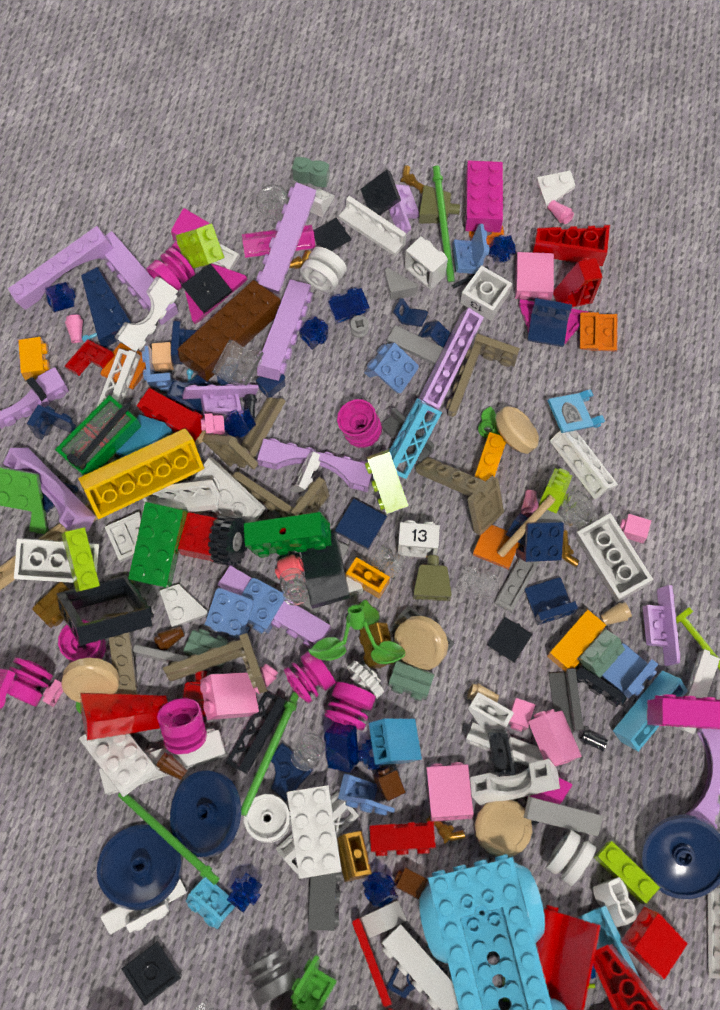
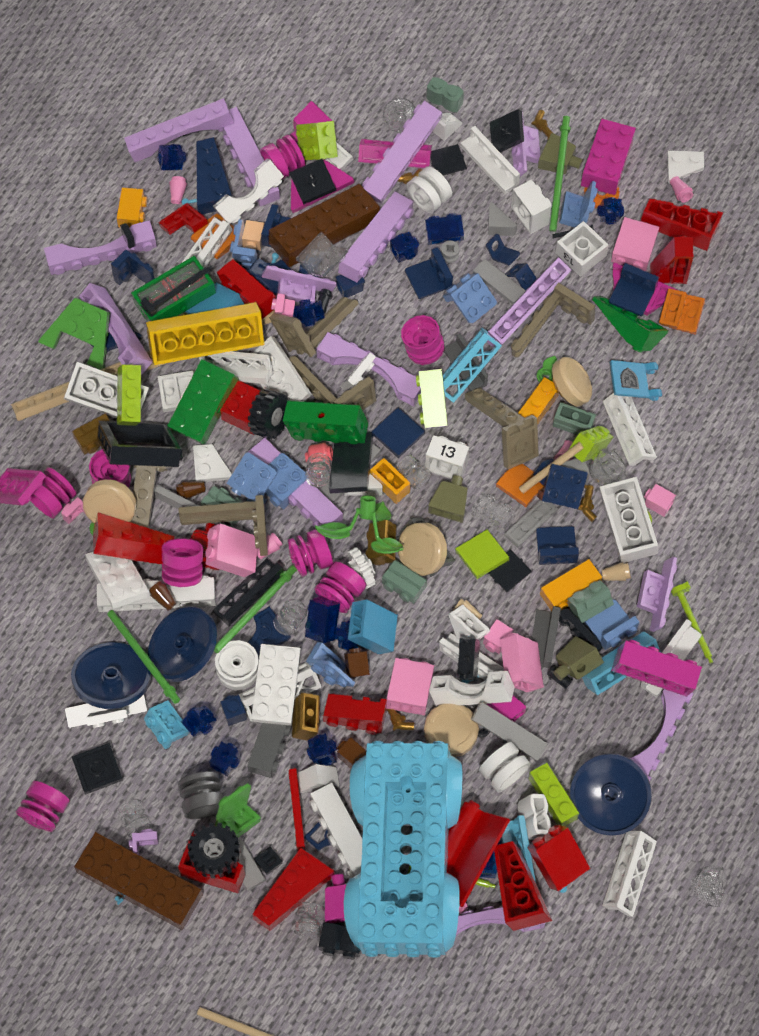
camera: 15 degrees right, 5 degrees down
(275, 931) = (224, 758): none -> clear blue brick
(276, 868) = (233, 710): none -> dark blue brick
(347, 355) = (430, 275): none -> dark blue bracket
(479, 630) = (482, 554): none -> lime tile
(530, 468) = (573, 419): none -> sand green brick
(561, 362) = (637, 332): none -> green wedge
(608, 719) = (577, 659): none -> olive torso

